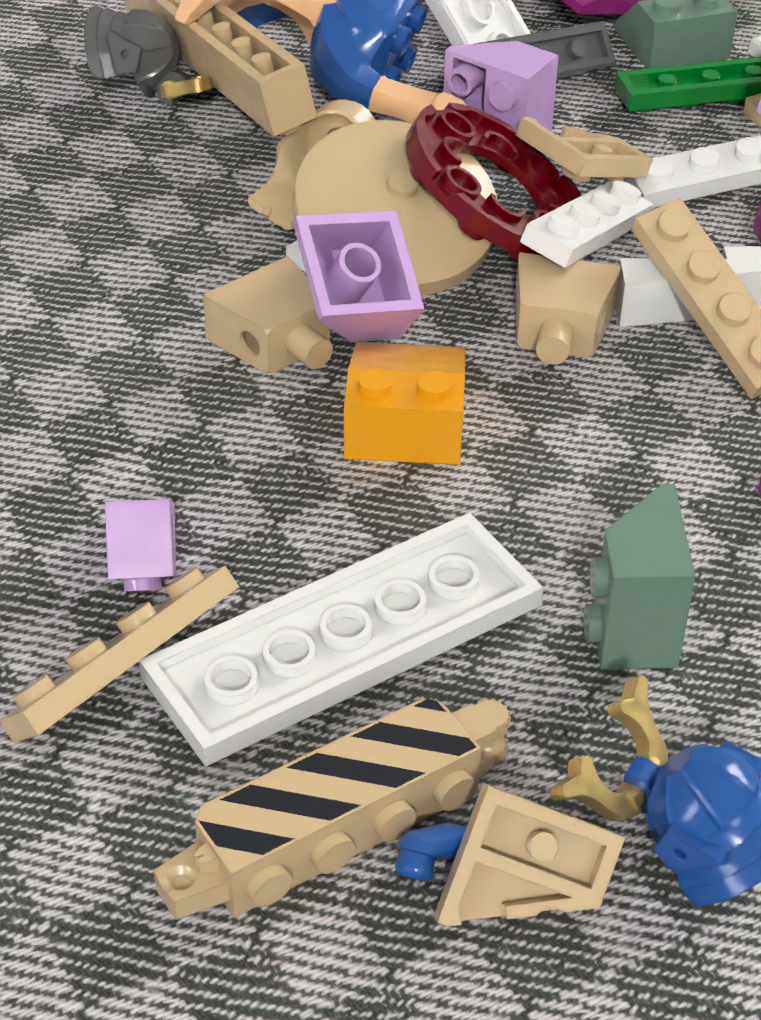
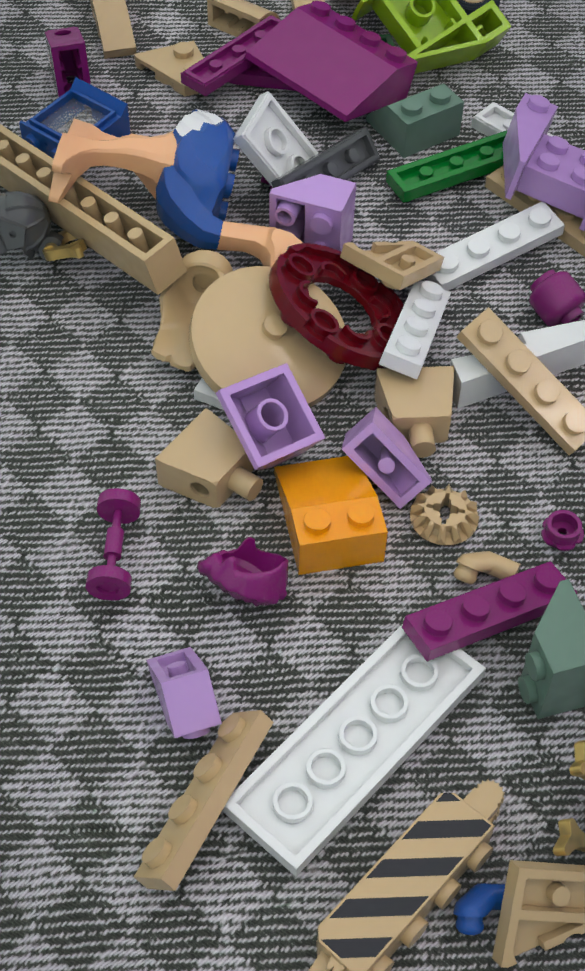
camera: 15 degrees left, 10 degrees up
(100, 411) = (108, 580): none -> magenta wheel
(272, 438) = (248, 573): none -> magenta hair
(497, 346) = (386, 457): none -> lavender slope
(542, 528) = (482, 611): none -> magenta plate
(570, 440) = (427, 521): none -> tan gear
(594, 485) = (486, 562): none -> tan arm
(708, 468) = (565, 522): none -> magenta plate

